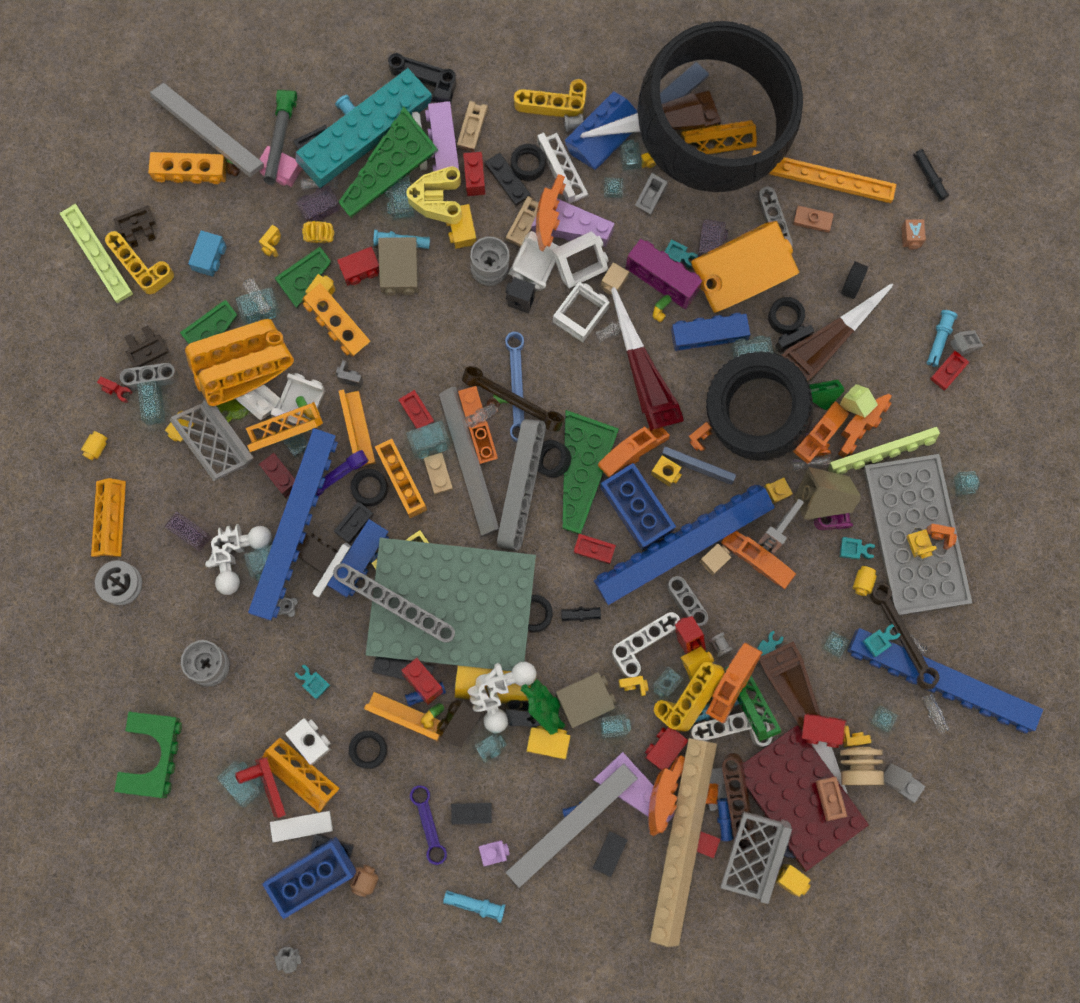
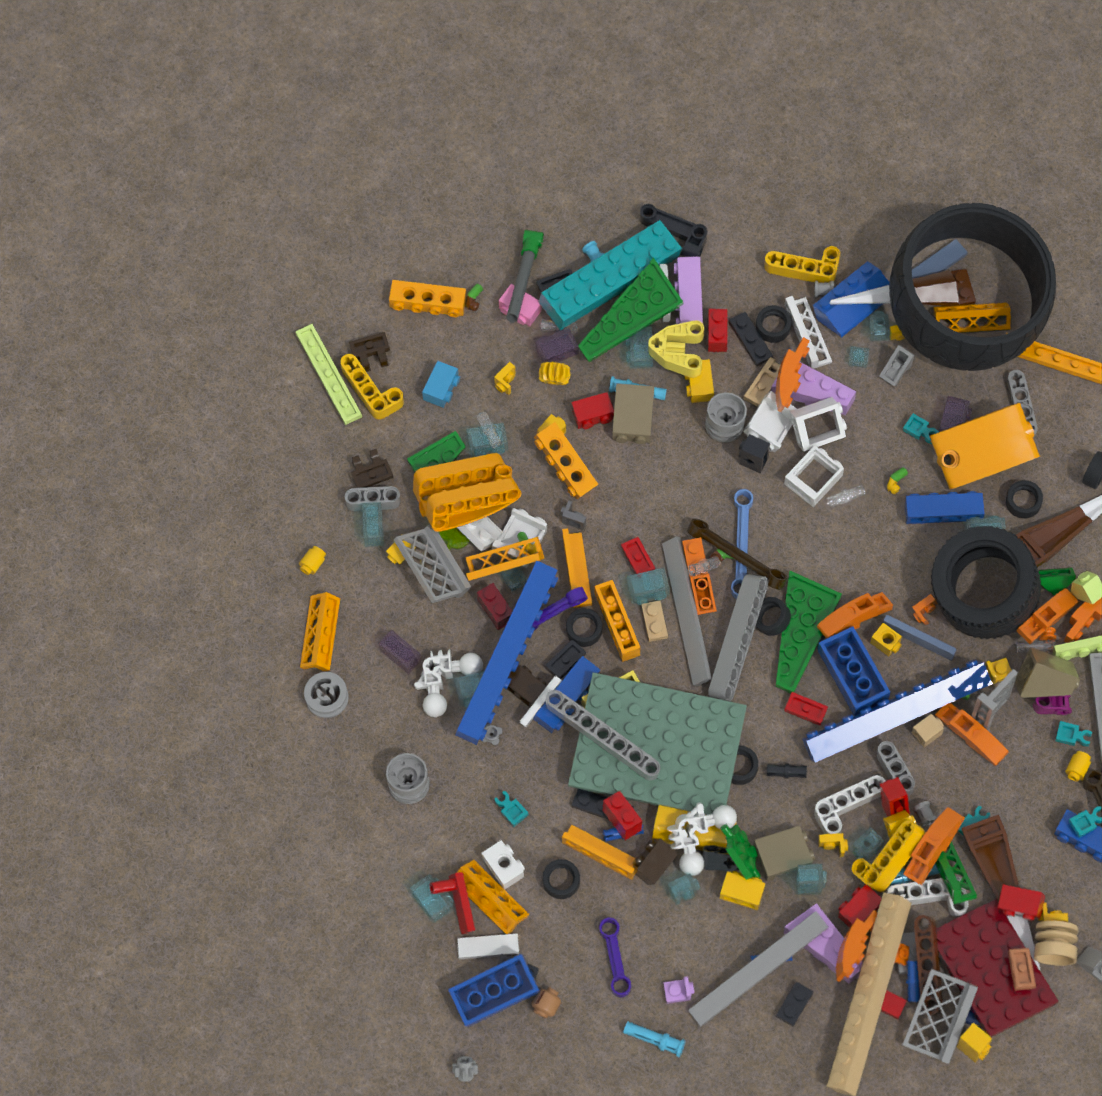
camera: 10 degrees right, 10 degrees down
(111, 387) = (333, 505): red plate -> none
(156, 782) = (346, 888): green arch -> none
(207, 129) = (450, 262): light grey tile -> none
(299, 276) = (533, 414): green wing -> none
(426, 720) = (623, 854): arm -> none
(471, 813) = (659, 950): black plate -> none
(472, 126) = (719, 283): tan plate -> none
(615, 277) = (851, 447): tan brick -> none
(653, 393) = (880, 563): dark red plate -> none
(663, 273) = (901, 445): magenta brick -> none
(800, 334) = (1023, 523): black plate -> none
(813, 219) = (1061, 406): nougat plate -> none
(835, 644) = (1043, 825): clear light blue plate -> none
(883, 719) = (1084, 903): clear light blue plate -> none

